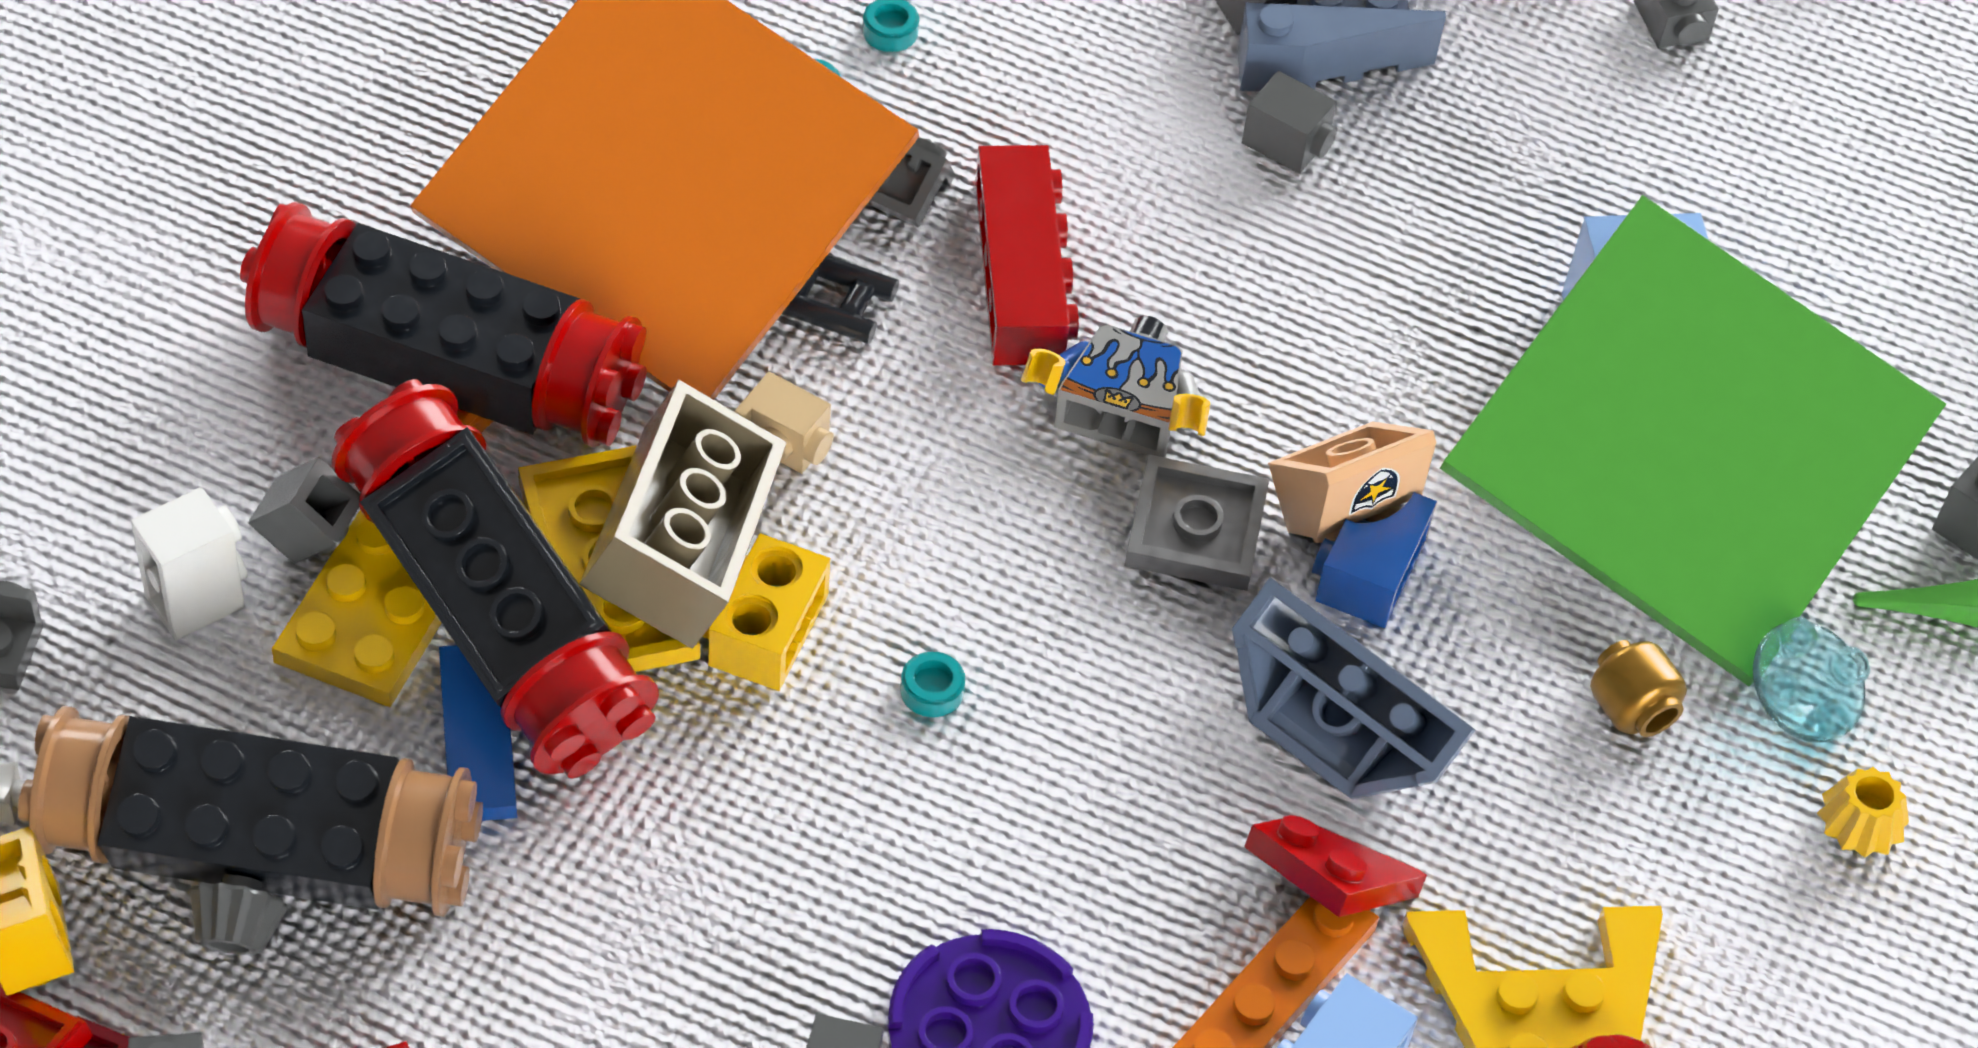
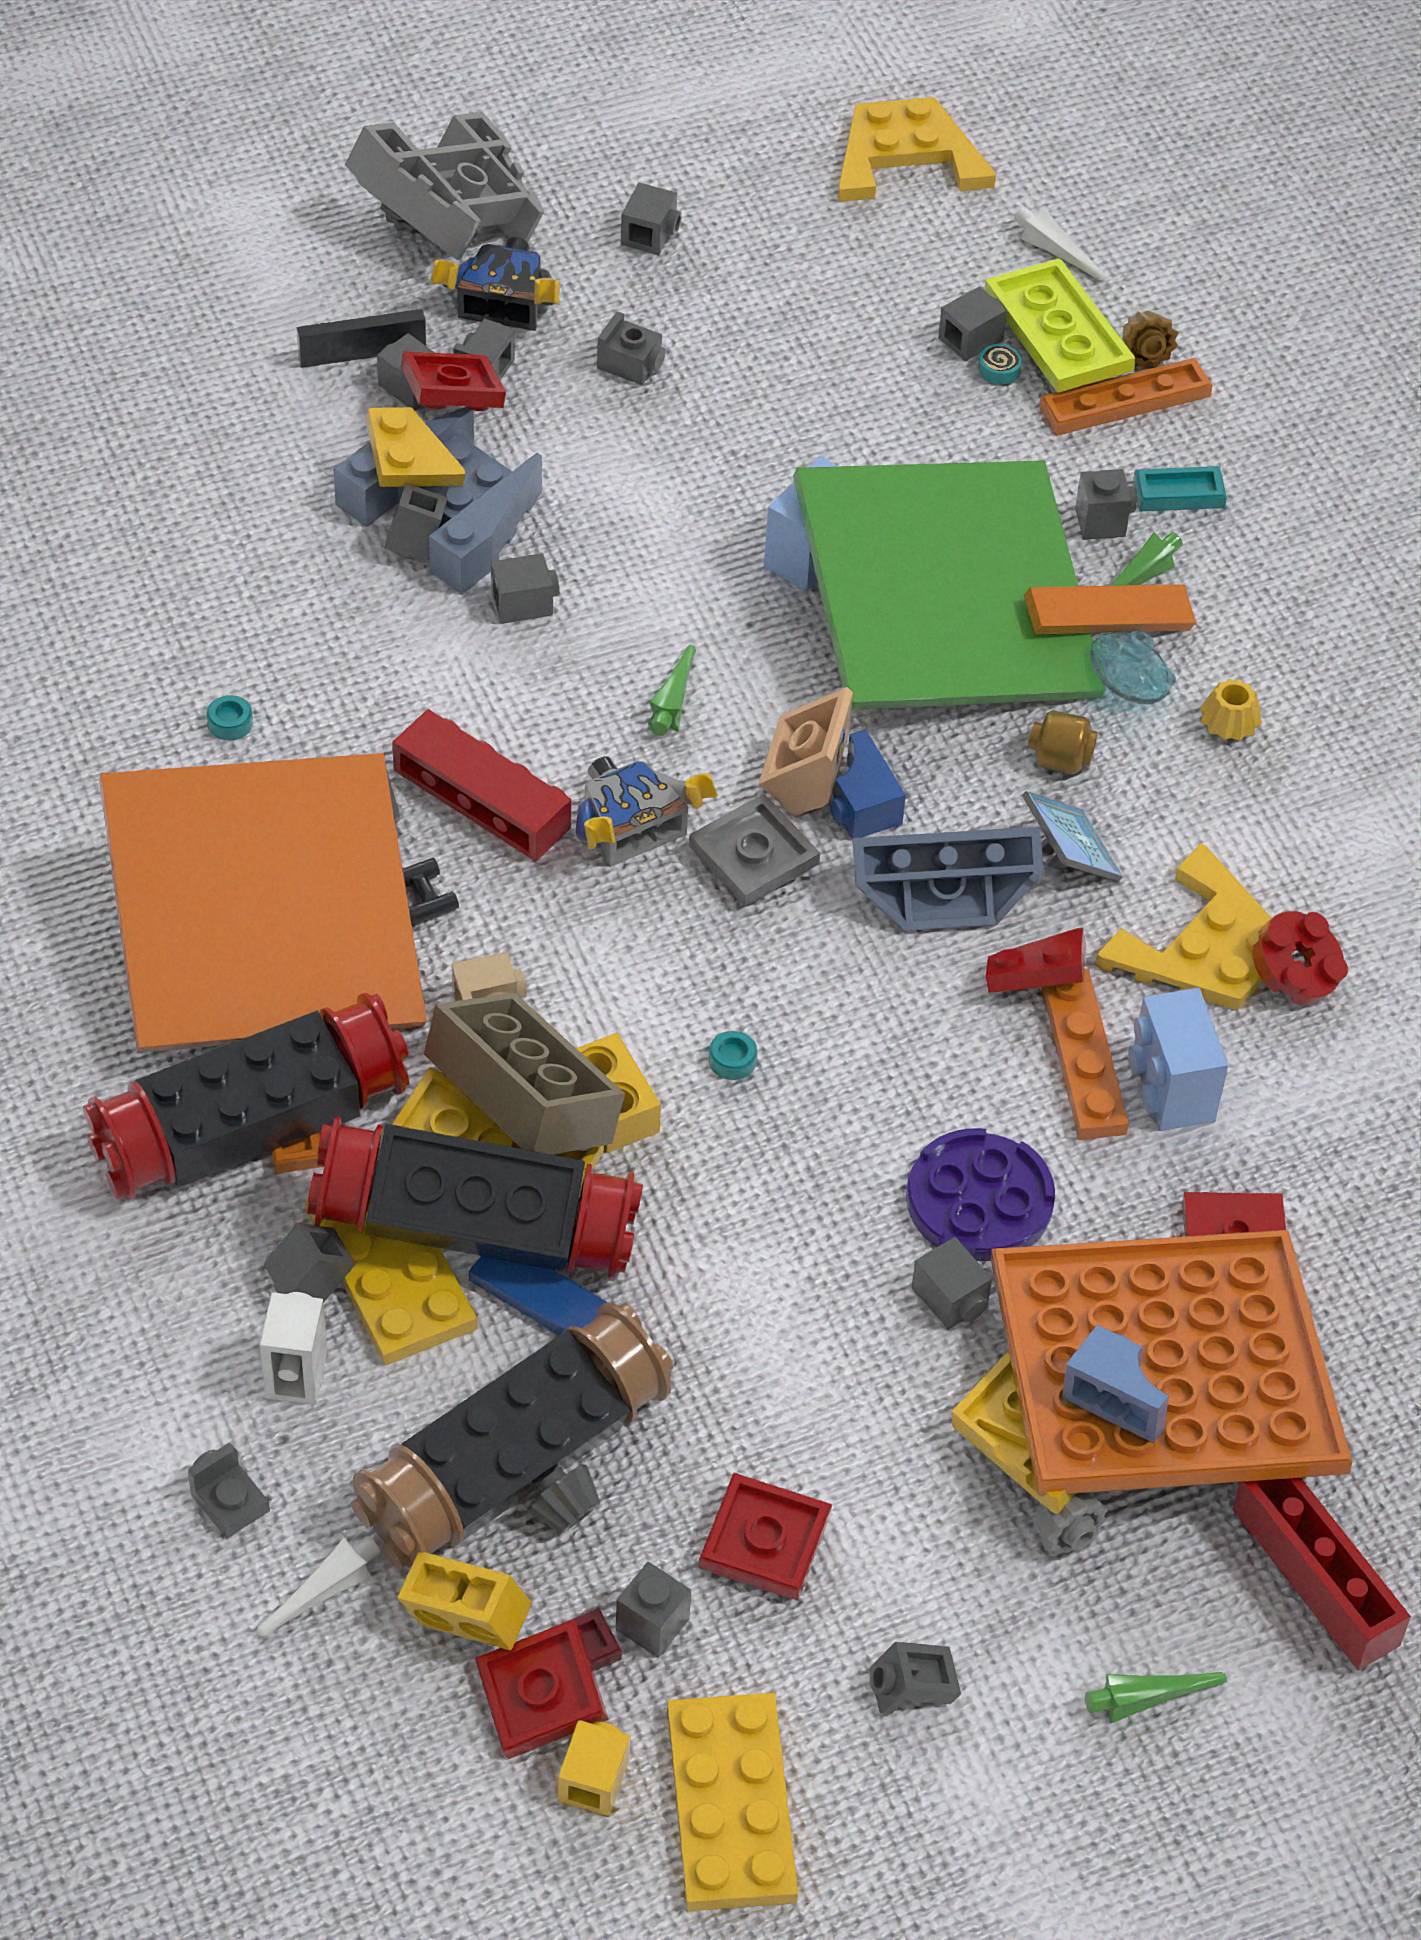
camera: 45 degrees left, 0 degrees up
(1297, 330) = (669, 699): none -> bright green piece
(1521, 778) = (1071, 837): none -> piece
(1851, 604) = (1109, 609): none -> orange tile

